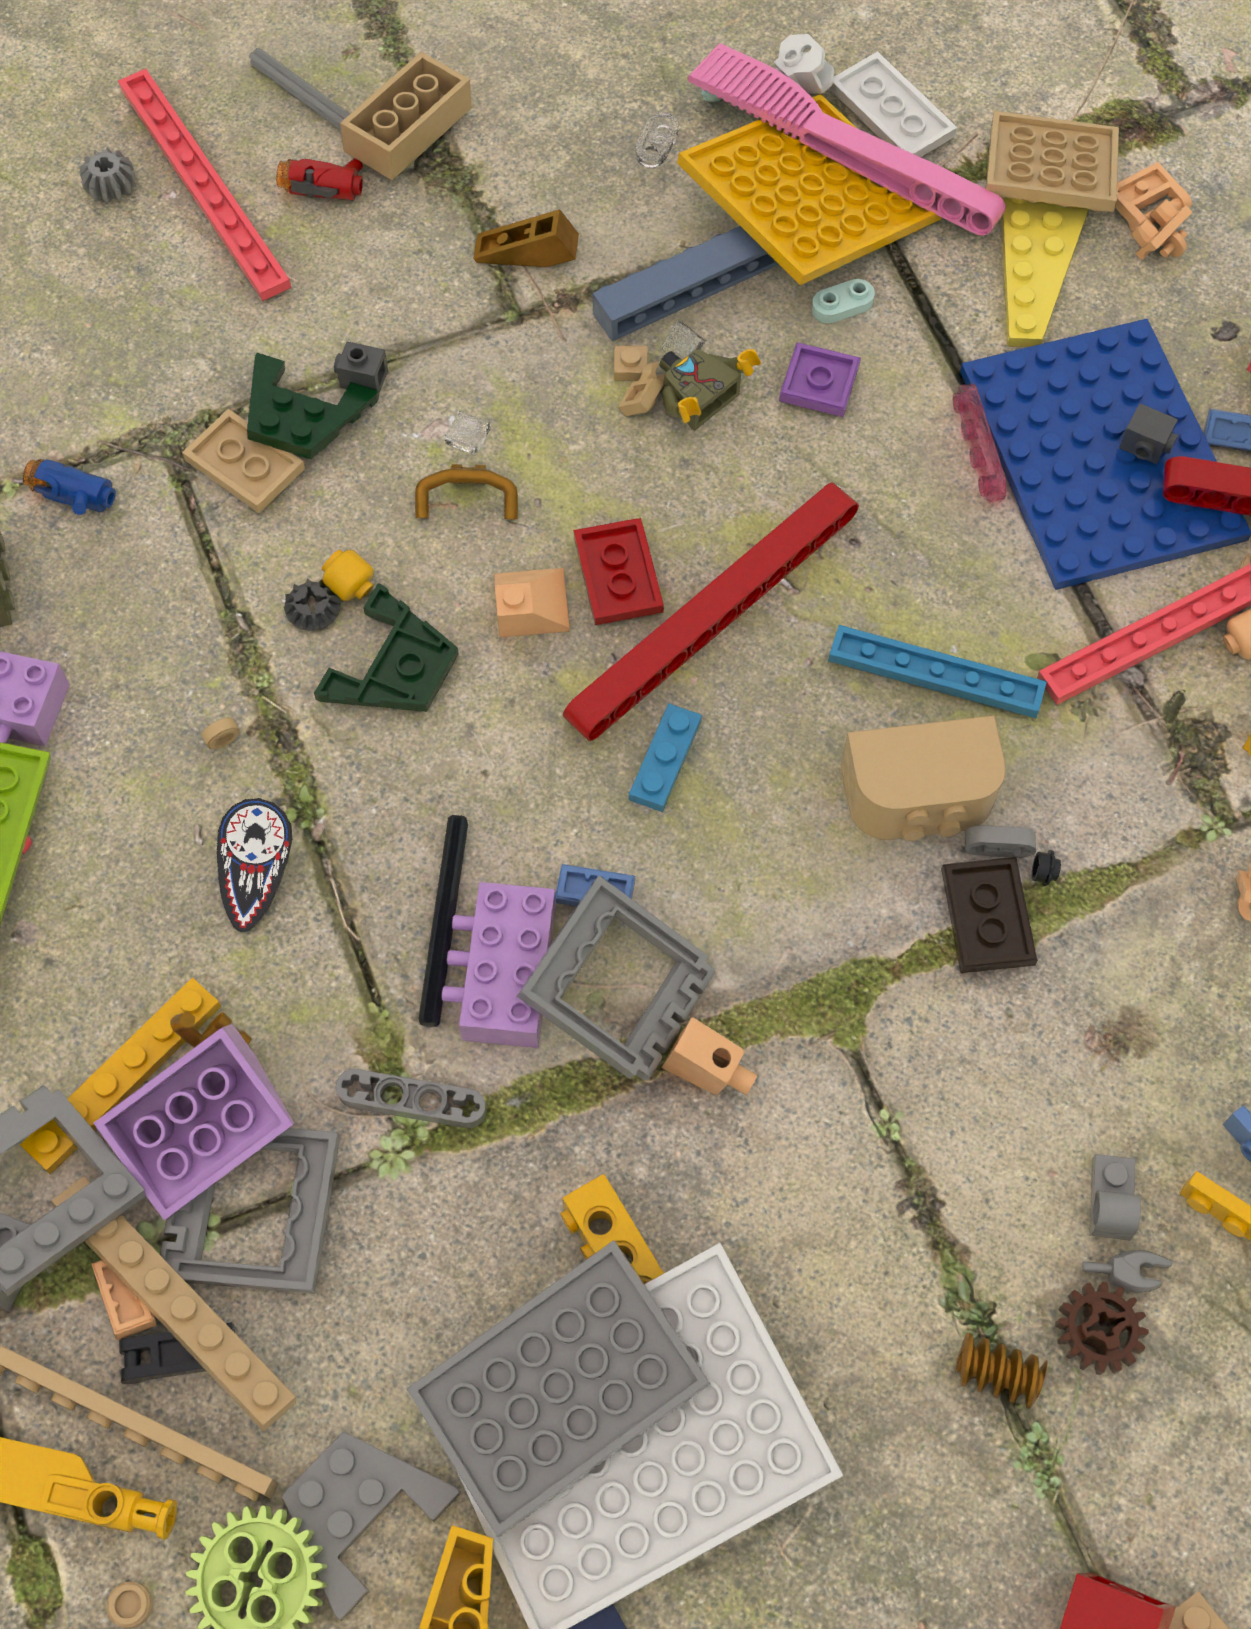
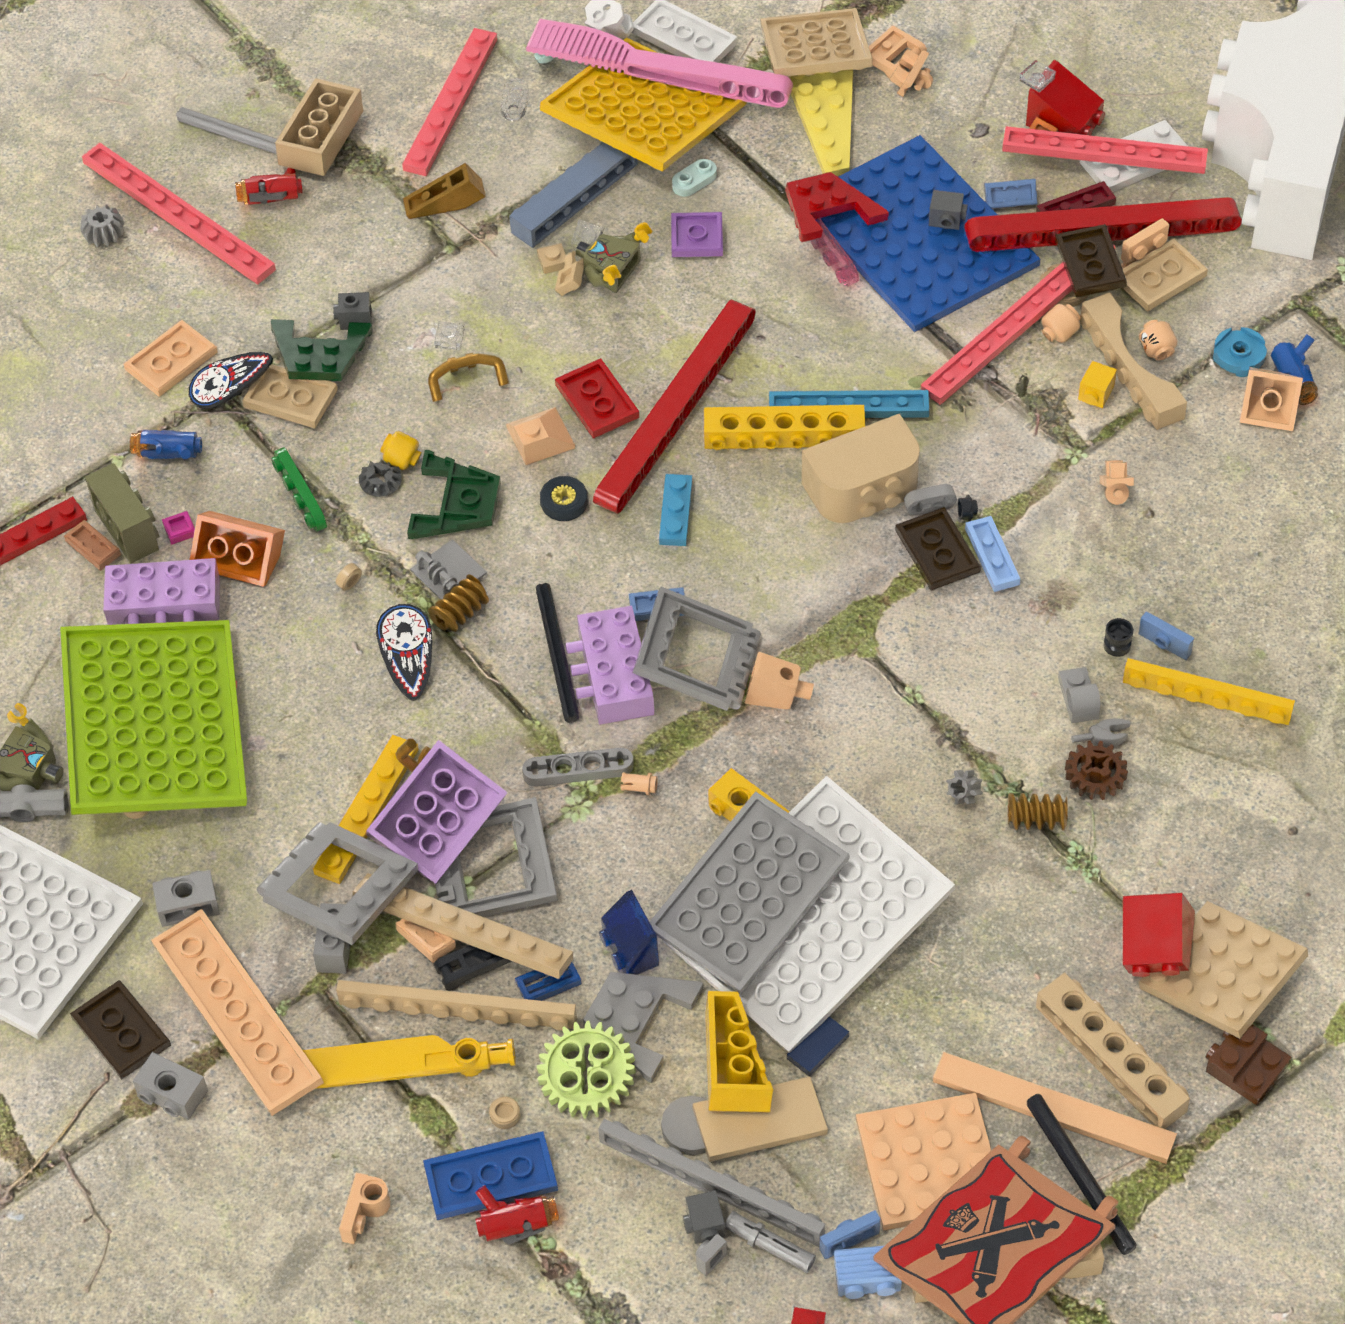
camera: 15 degrees left, 10 degrees down
(45, 602) = (179, 527): none -> dark pink tile
(99, 650) = (240, 546): none -> orange slope
(123, 370) = (170, 358): none -> light nougat tile
(174, 417) = (227, 378): none -> shield
(203, 582) = (302, 495): none -> green plate
(255, 1432) = (549, 985): none -> blue tile
(341, 815) = (458, 603): none -> pearl gold piece
(347, 759) = (445, 568): none -> light grey hinge
(381, 1387) = (629, 936): none -> clear blue slope
(481, 1149) = (639, 783): none -> light nougat pin
(522, 685) = (554, 491): none -> black bush
(578, 123) = (449, 102): none -> coral plate
(831, 666) = (778, 425): none -> yellow brick
(911, 1298) = (964, 787): none -> light grey gear
(994, 374) = (826, 196): none -> red wing
(1059, 947) = (992, 553): none -> light blue plate
(1198, 1120) = (1118, 637): none -> black wheel

